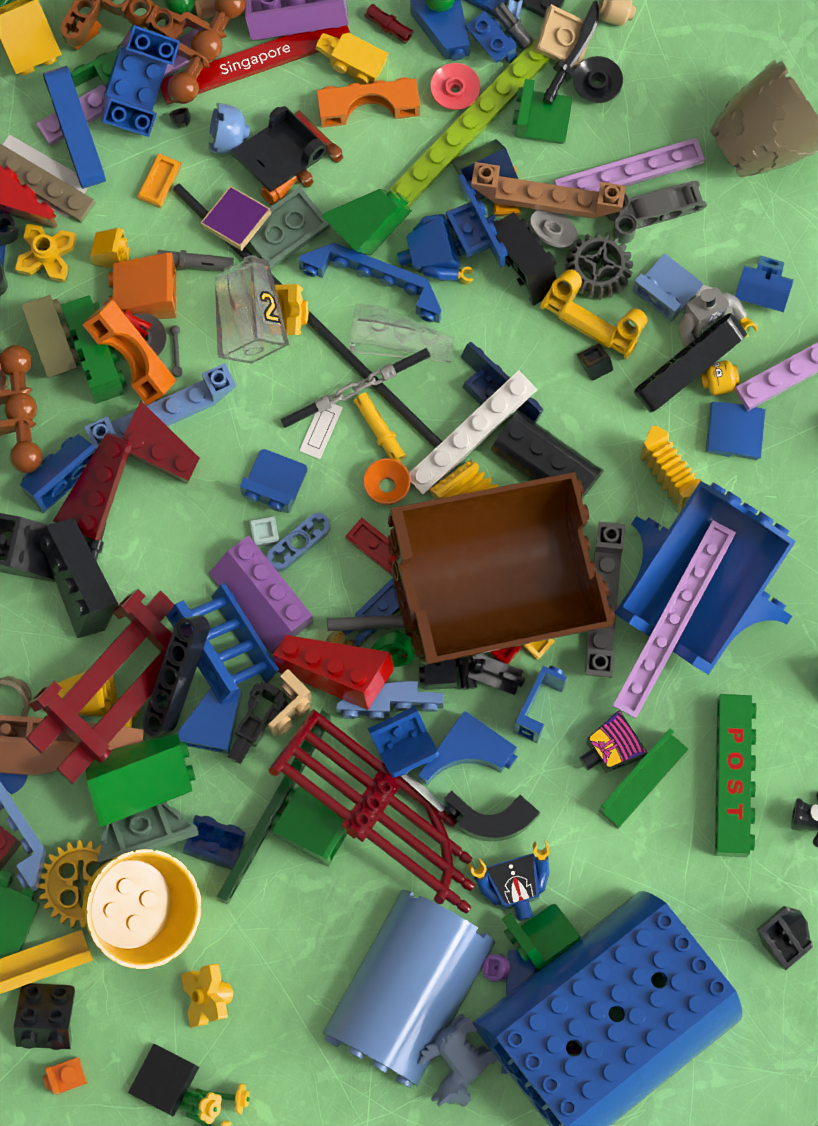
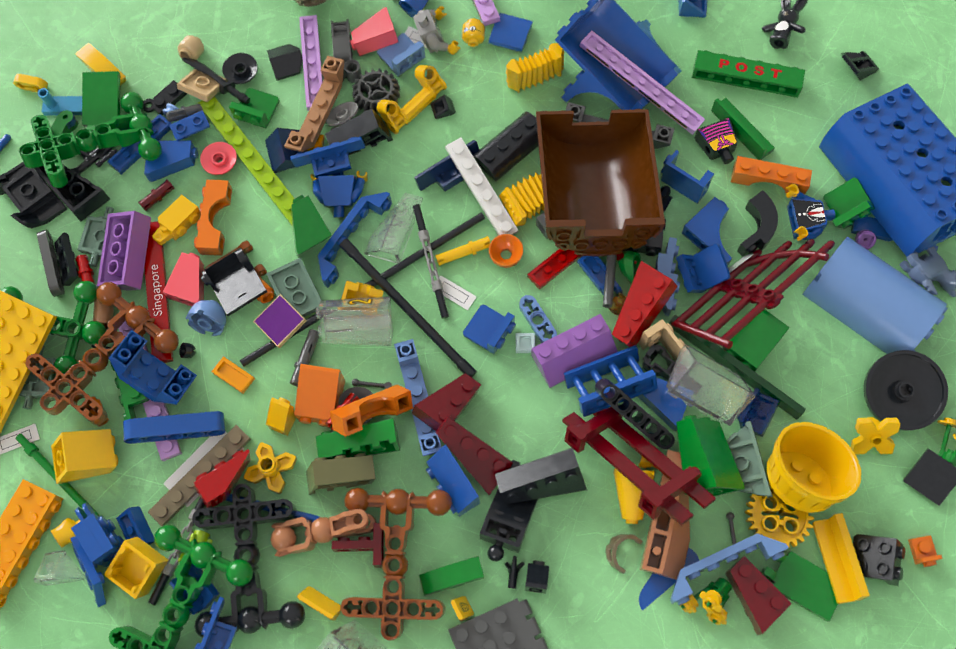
camera: 75 degrees left, 5 degrees down
(73, 825) = (730, 516): none -> dark grey hinge
(221, 455) = (462, 364): none -> black piece
(233, 766) = (708, 386): none -> clear windscreen
(272, 89) = (185, 281): none -> coral slope
(276, 1033) = (906, 388): none -> black dish
(569, 824) = (750, 171): none -> orange arch
(626, 134) = (285, 61): none -> black slope
(690, 362) = (460, 45): black beam -> none
(691, 244) = (374, 33): none -> coral slope

